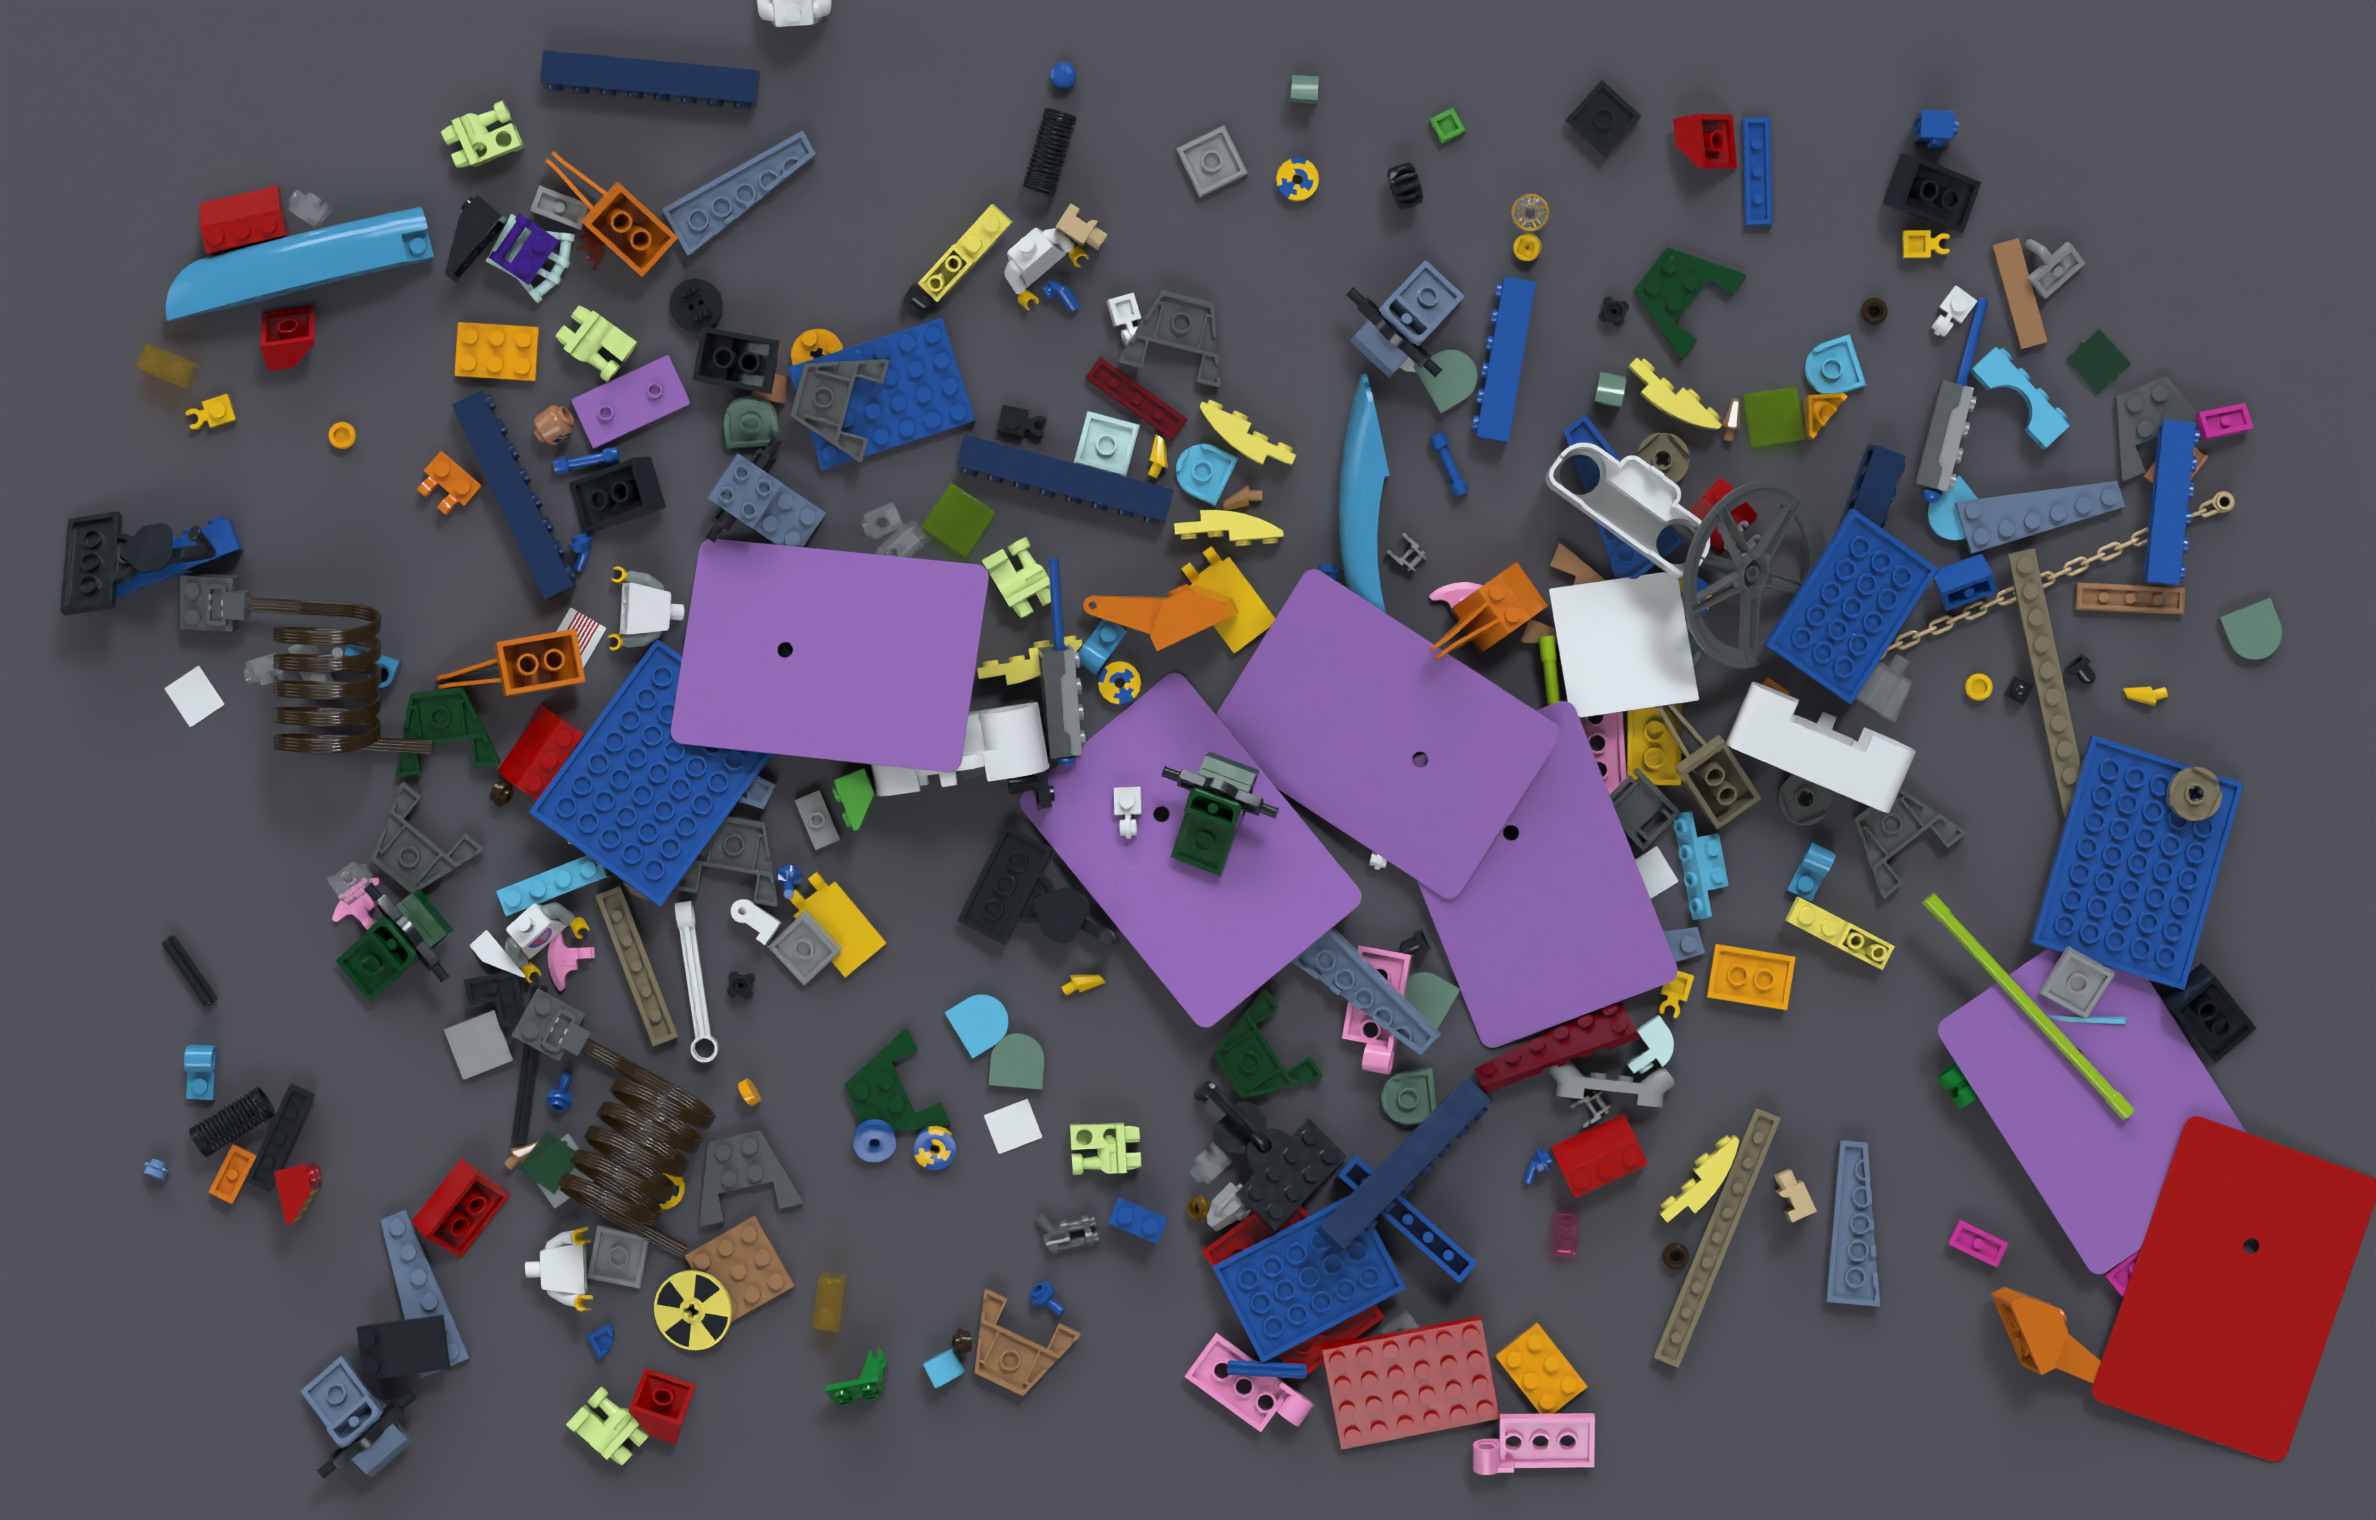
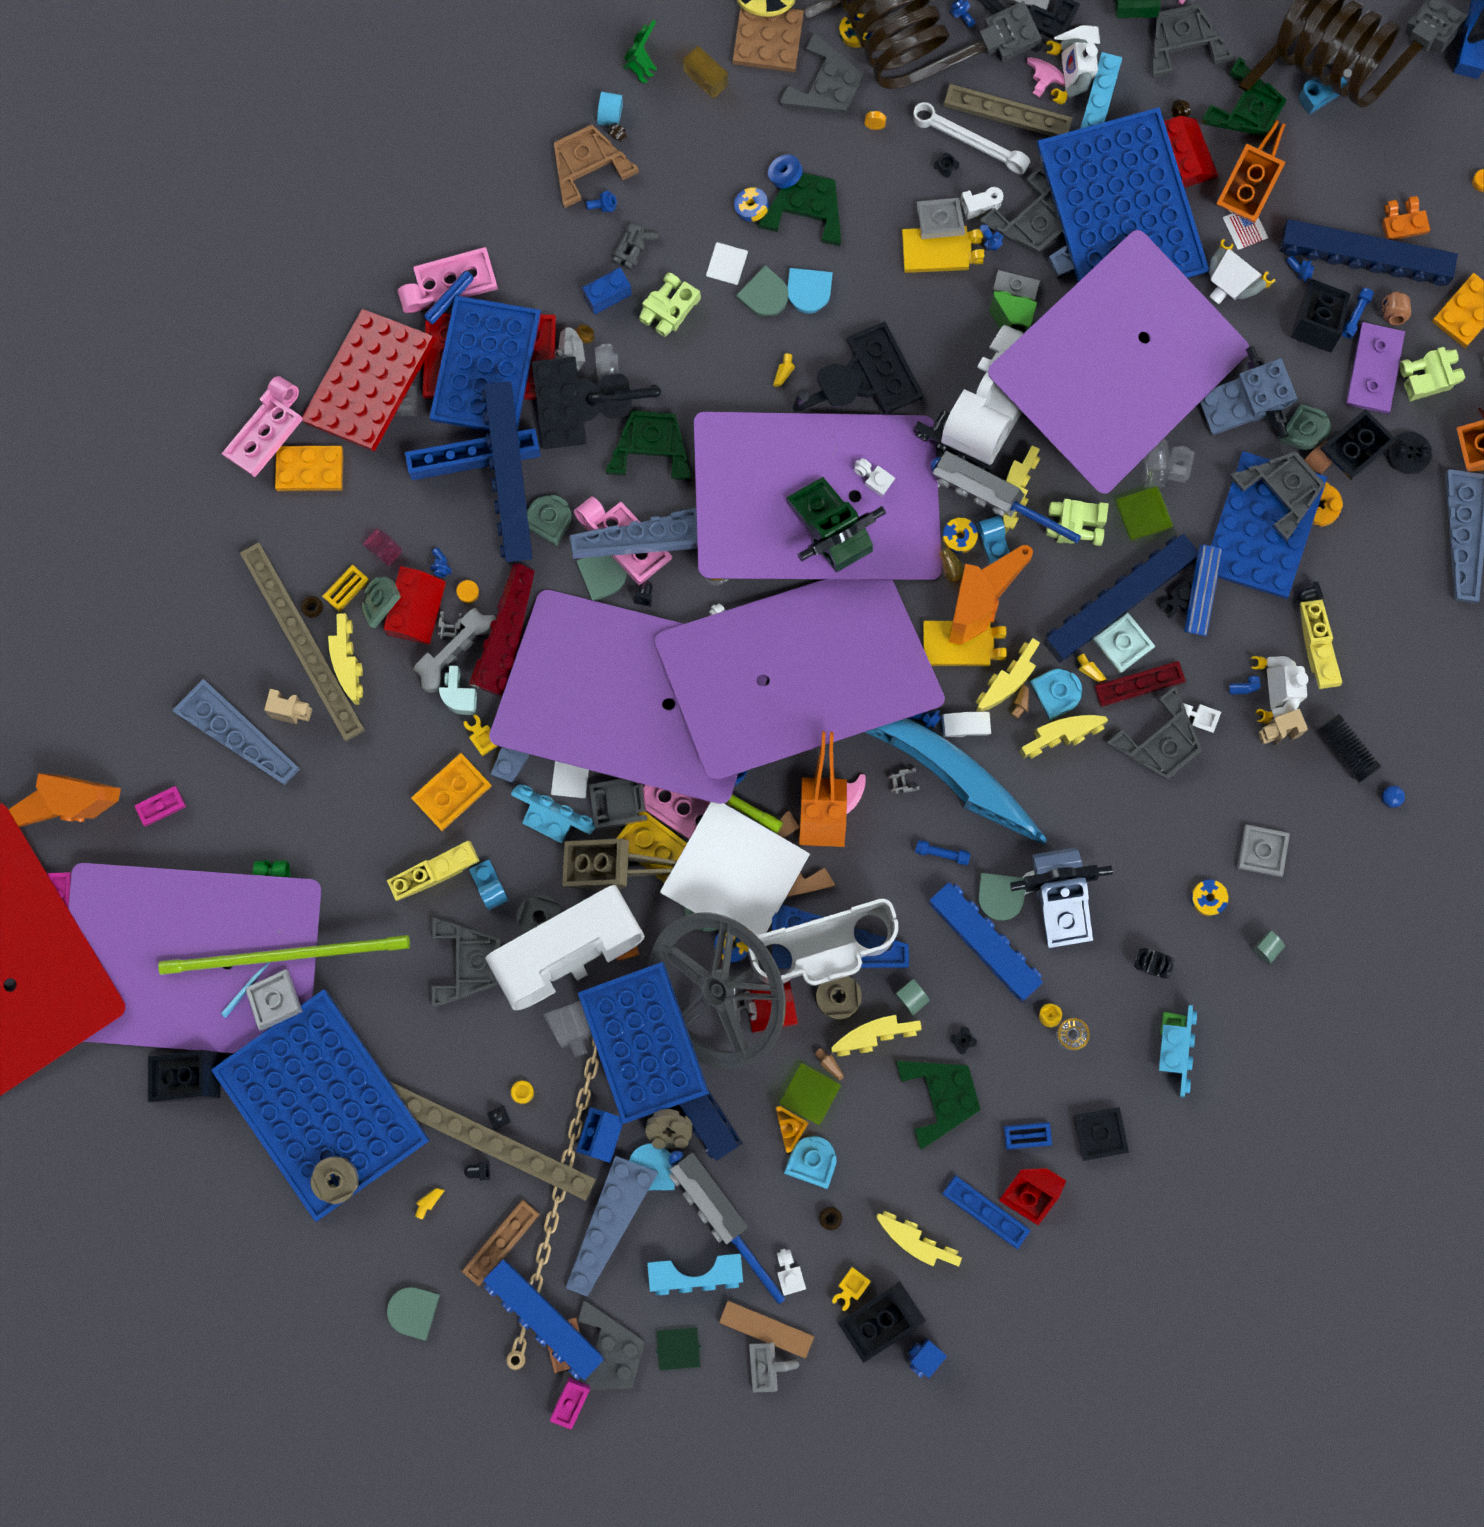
camera: 125 degrees right, 10 degrees down
(998, 405) = (1203, 590): none -> blue tile
(1158, 667) = (951, 565): none -> clear yellow cone
(1306, 535) = (966, 724): none -> white slope
(1471, 105) = (1175, 1050): none -> medium azure bracket
(1544, 1117) = (468, 591): none -> light orange tile
(1608, 1236) = (364, 580): none -> yellow tile
(1621, 1192) = (380, 598): none -> sand green tile
(1641, 168) = (1008, 1137): none -> blue tile
(1838, 226) = (908, 1236): none -> light yellow slope
(1922, 524) = (663, 1138): none -> dark tan plate

